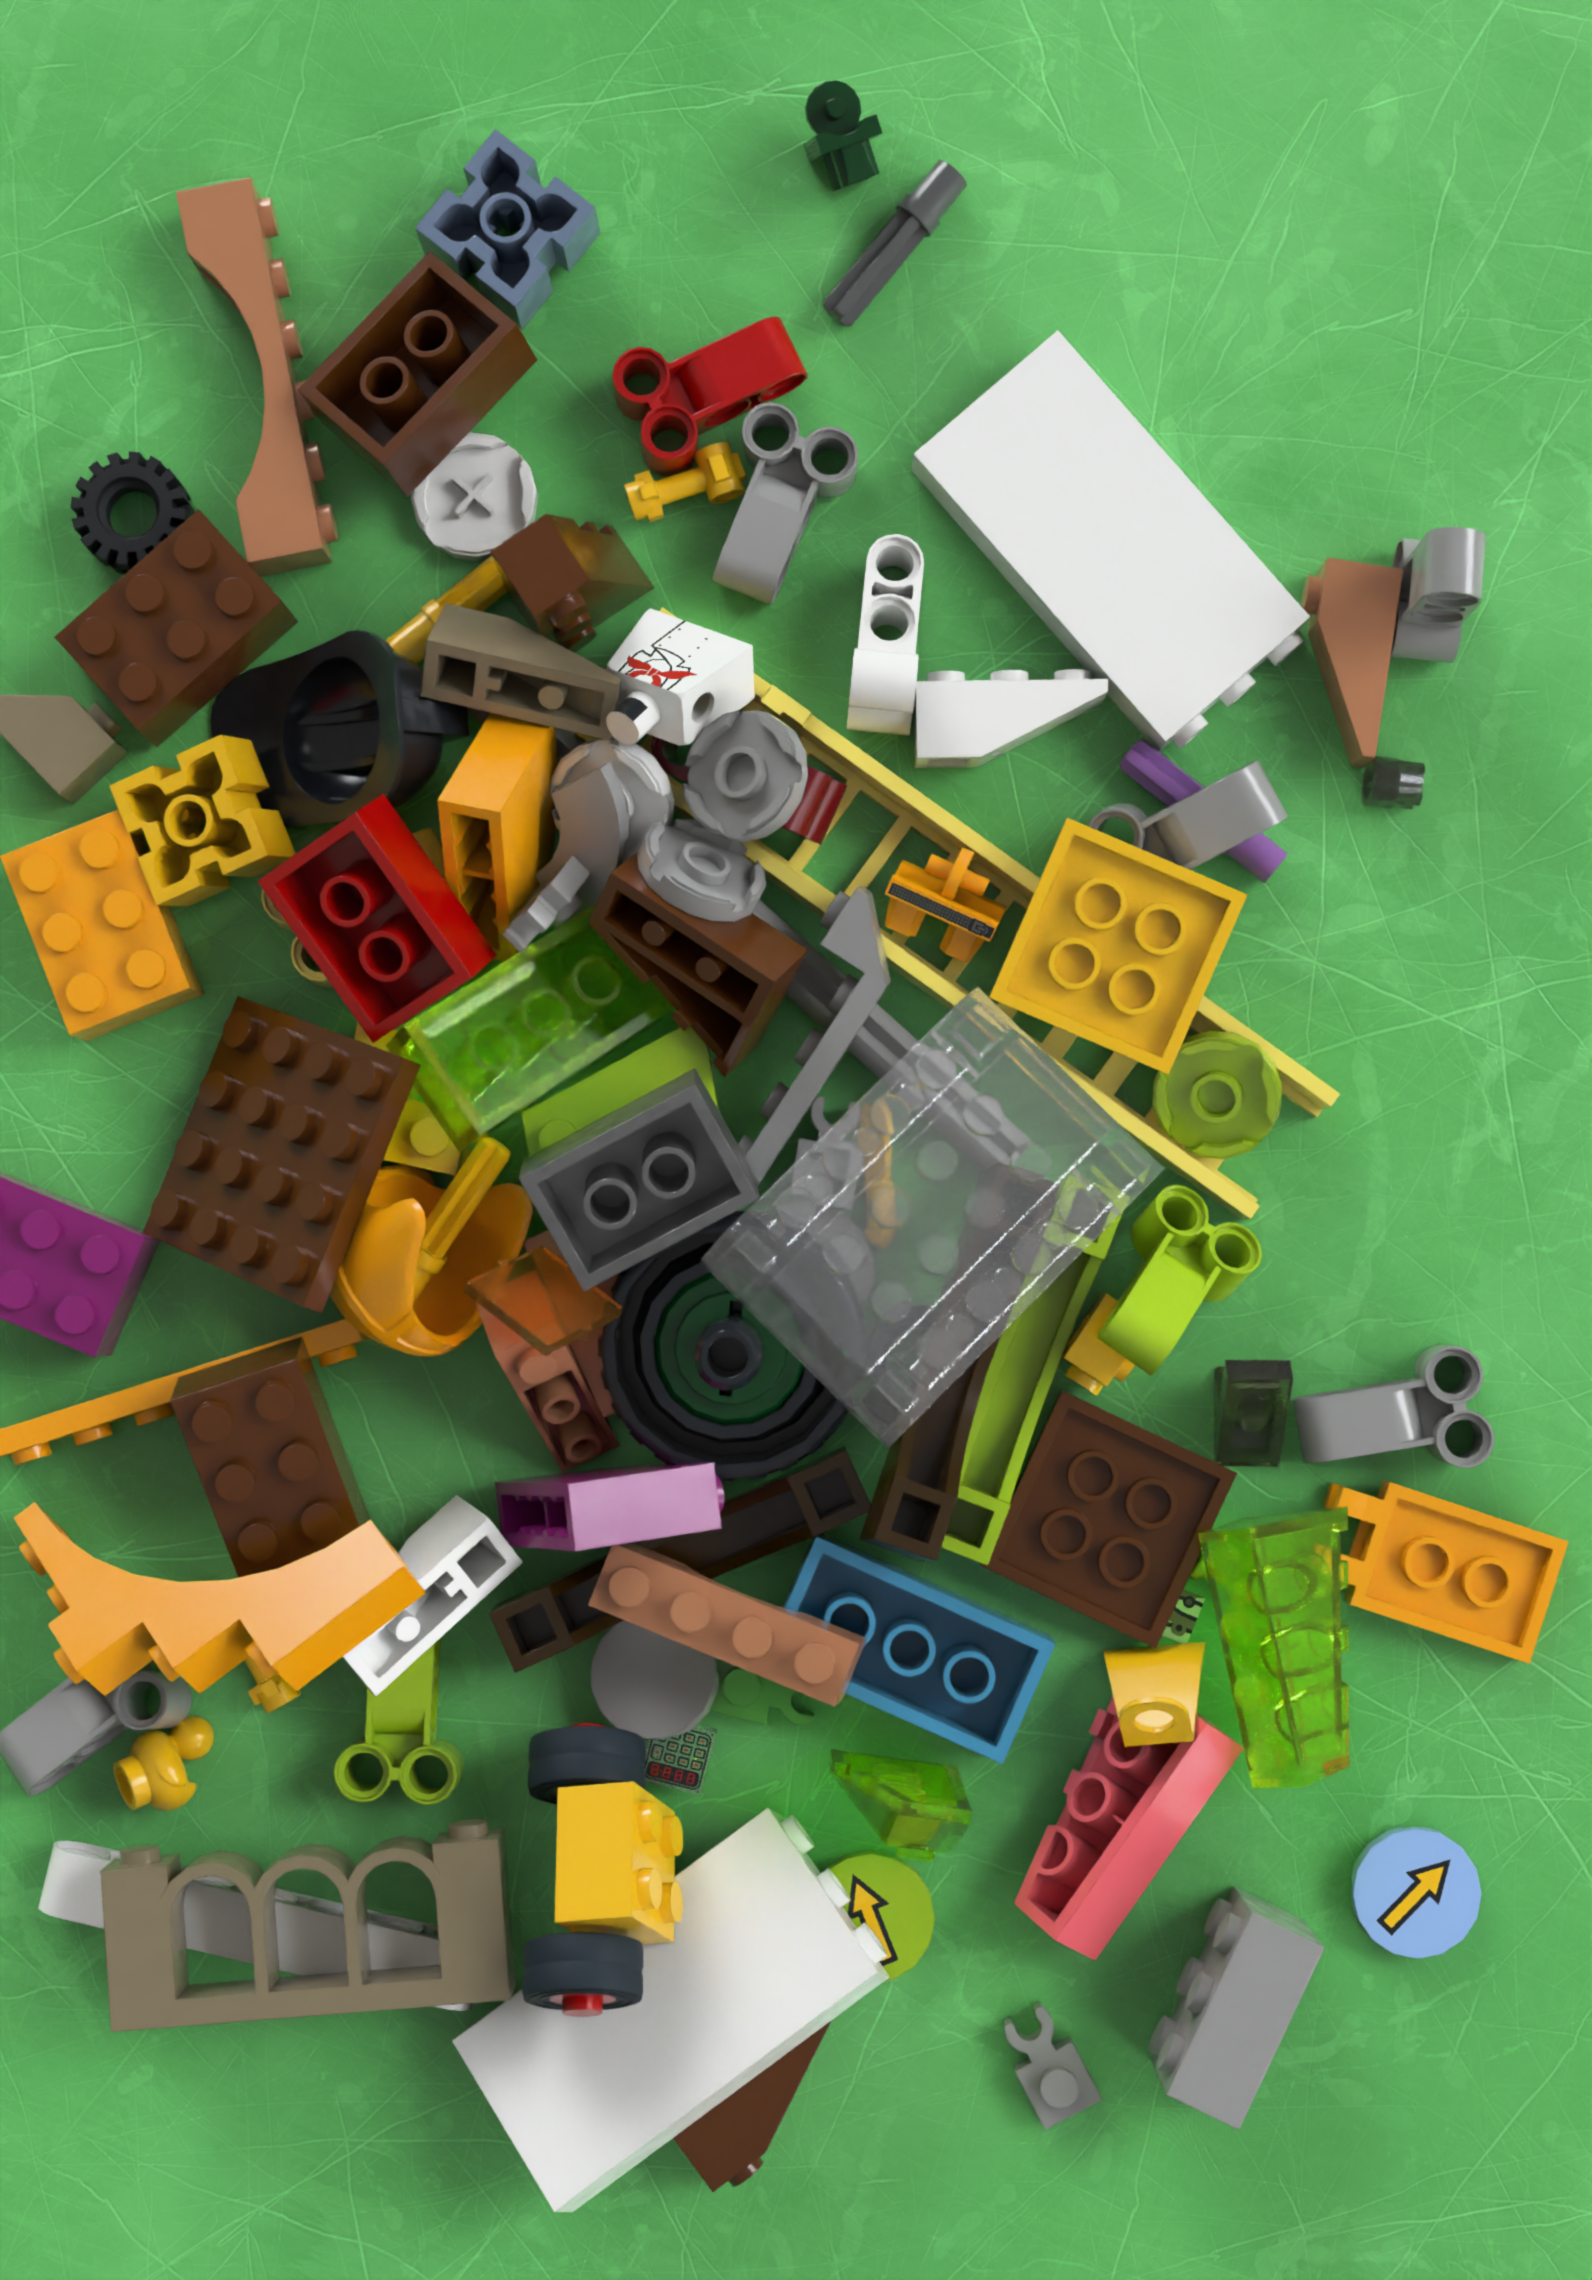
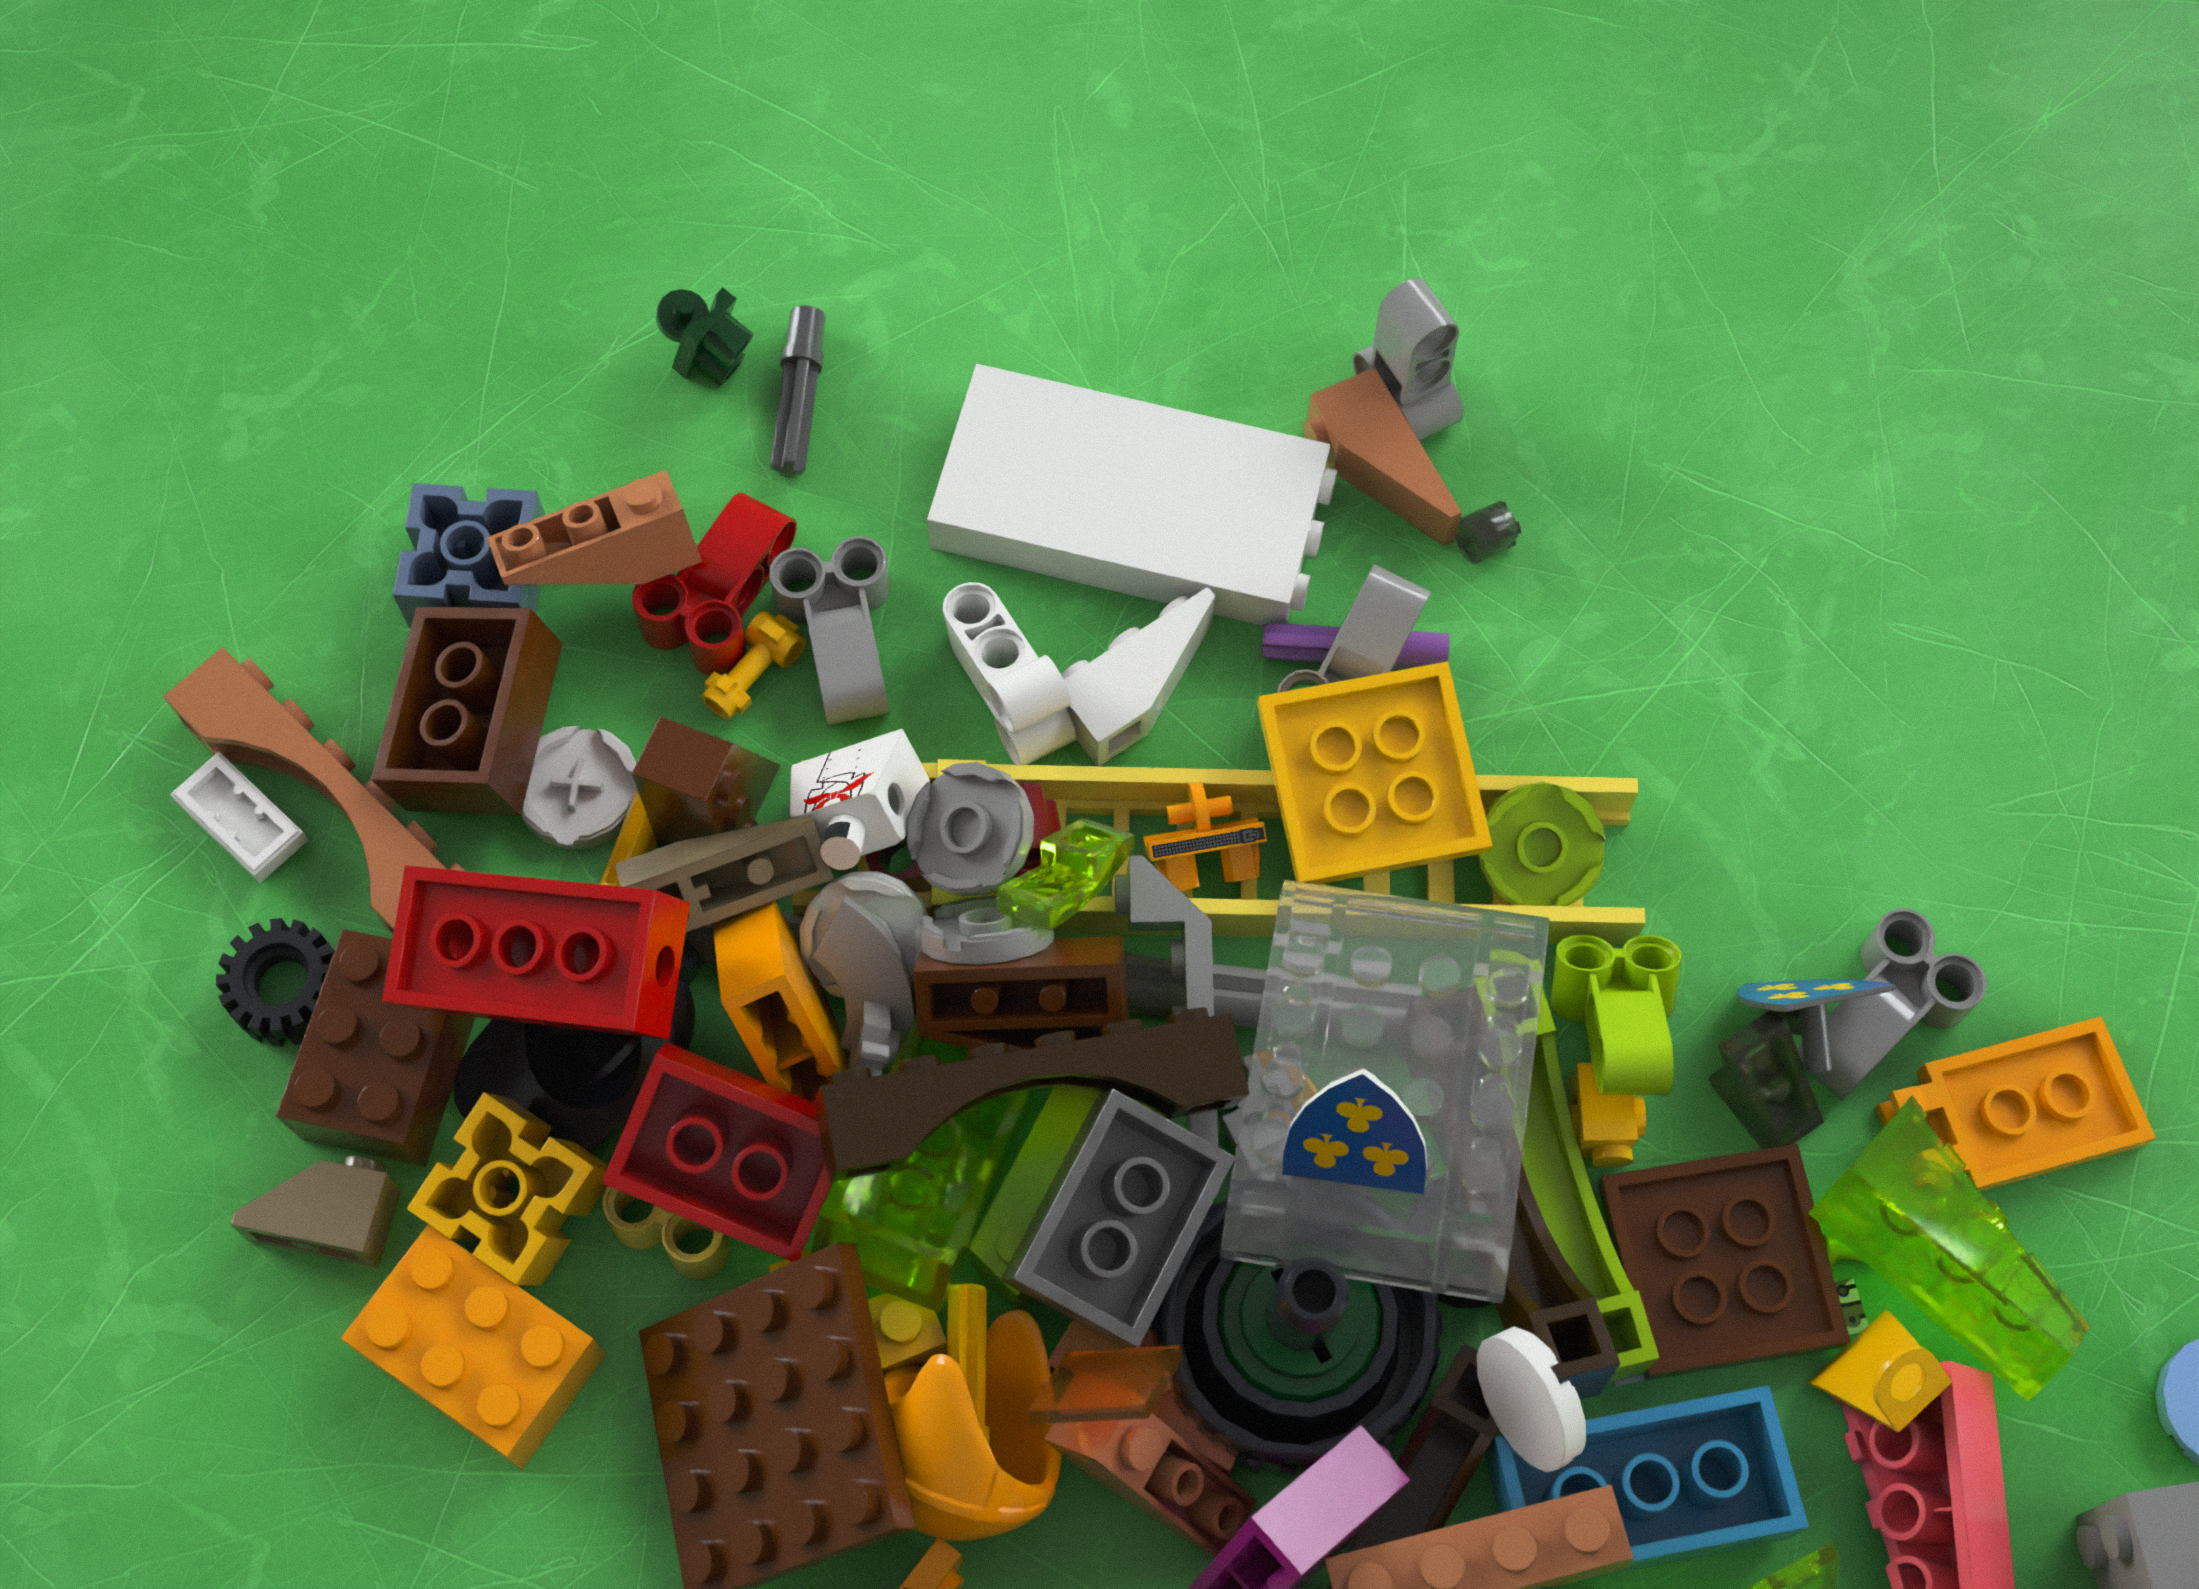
camera: 35 degrees left, 20 degrees down
(182, 340) = (239, 817): none -> white plate
(319, 656) = (537, 951): none -> red brick
(504, 990) = (1170, 1068): none -> dark brown arch
(623, 296) = (607, 539): none -> nougat slope
(804, 869) = (1071, 873): none -> clear neon green slope
(851, 1521) = (1528, 1402): none -> white tile
(854, 1257) = (1357, 1136): none -> blue shield
(1326, 1369) = (1805, 1009): none -> shield

